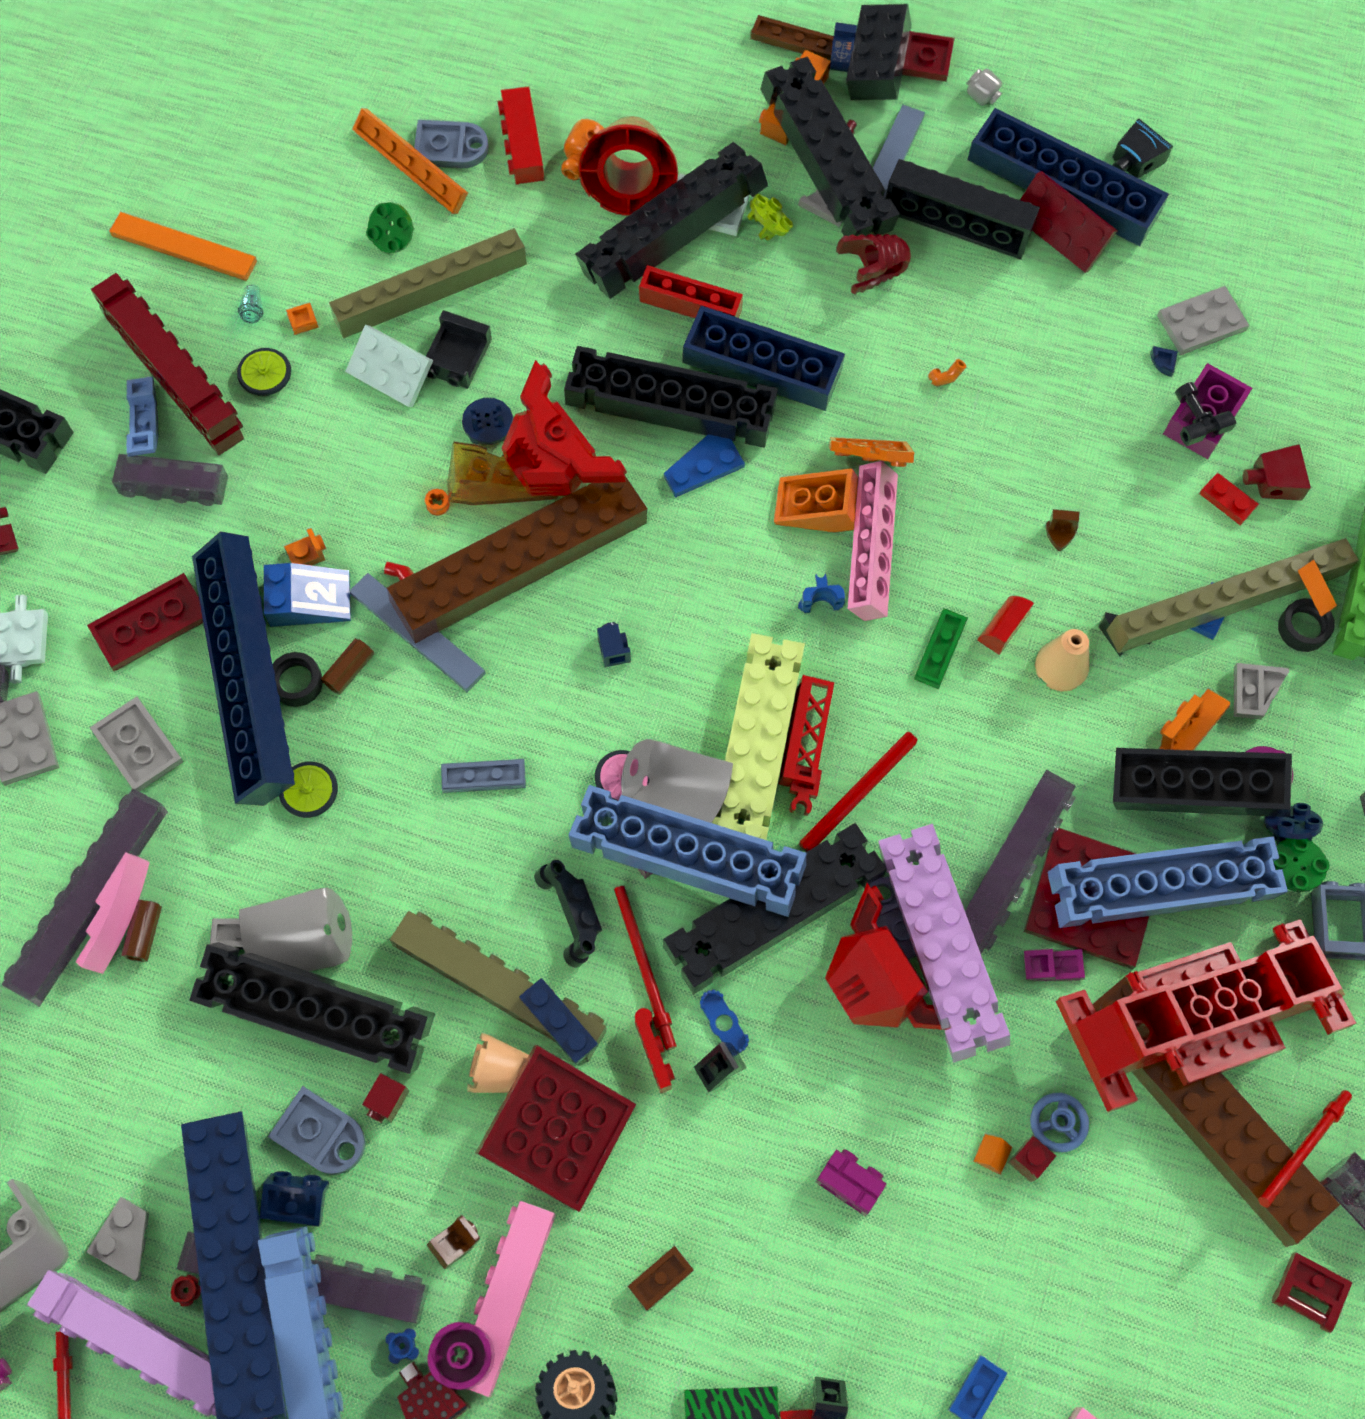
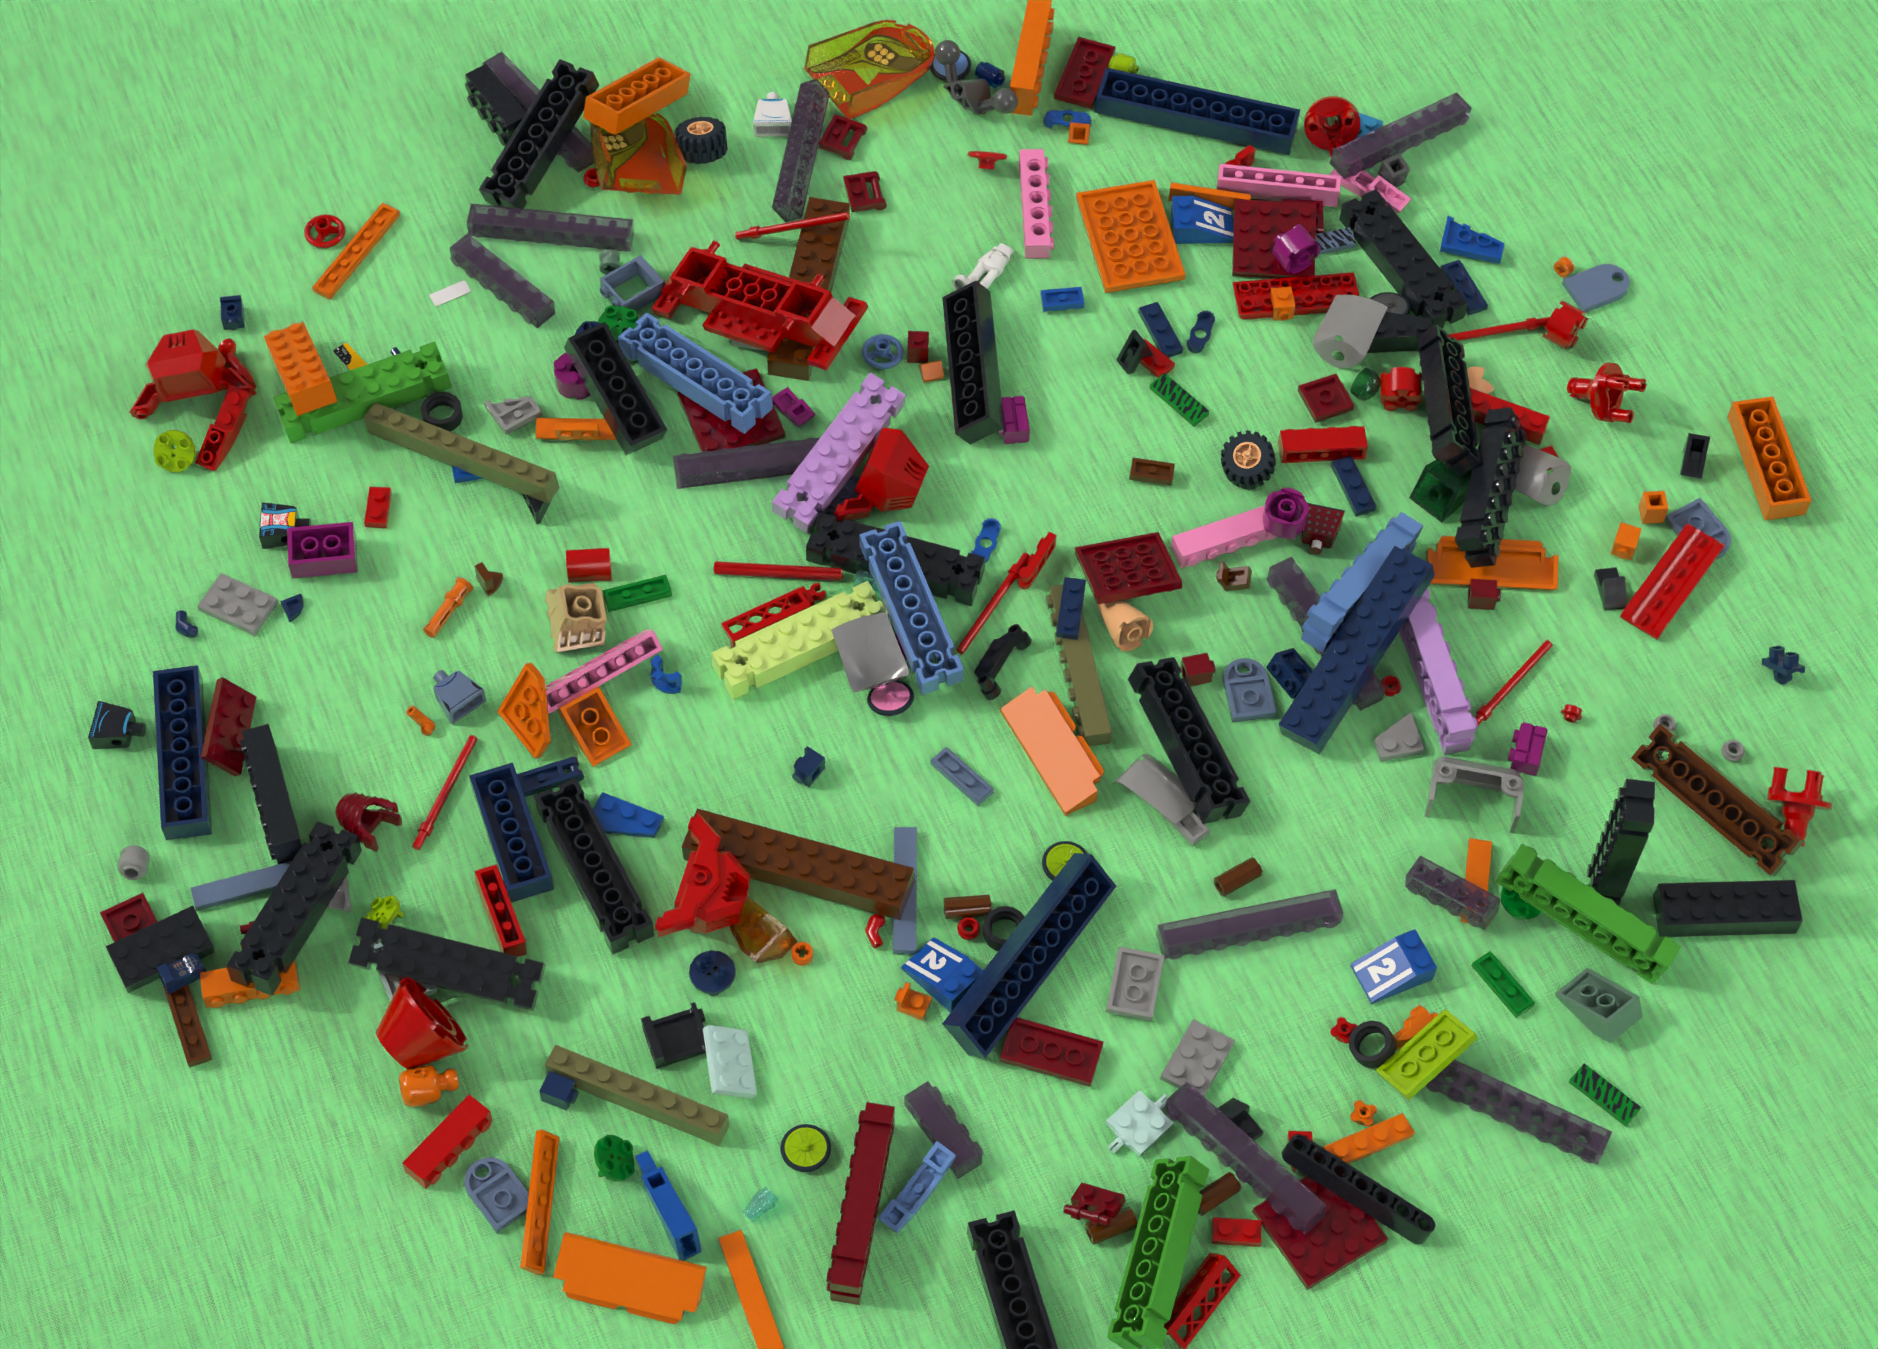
camera: 130 degrees left, 10 degrees down
(116, 910) = (1240, 894): bright pink slope -> none
(282, 169) = (629, 1278): none -> orange slope
(296, 231) = (669, 1208): none -> blue piece
(302, 318) = (739, 1164): orange tile -> none
(326, 645) = (968, 923): none -> red plate
(394, 1340) = (1308, 558): blue plate -> none
(443, 881) = (1054, 750): none -> orange slope
(486, 228) = (558, 1091): none -> dark blue brick
(719, 1065) = (1014, 516): black slope -> none
(798, 432) = (549, 776): none -> dark blue plate
(832, 310) = (426, 827): none -> red bar
(951, 417) = (457, 694): none -> sand blue torso
(956, 571) = (576, 616): none -> tan slope
(960, 1196) = (973, 362): none -> black brick
(1062, 485) = (452, 600): none -> orange pin
(1064, 661) = (587, 517): light nougat cone -> none
(1092, 1351) = (991, 264): none -> white piece
(1204, 421) = (344, 532): black bar -> none
(1213, 264) = (184, 627): none -> dark blue arm
(1269, 401) = (275, 521): none -> torso
(1280, 474) = (335, 487): dark red torso -> none
(1317, 588) = (417, 410): orange sticker -> none

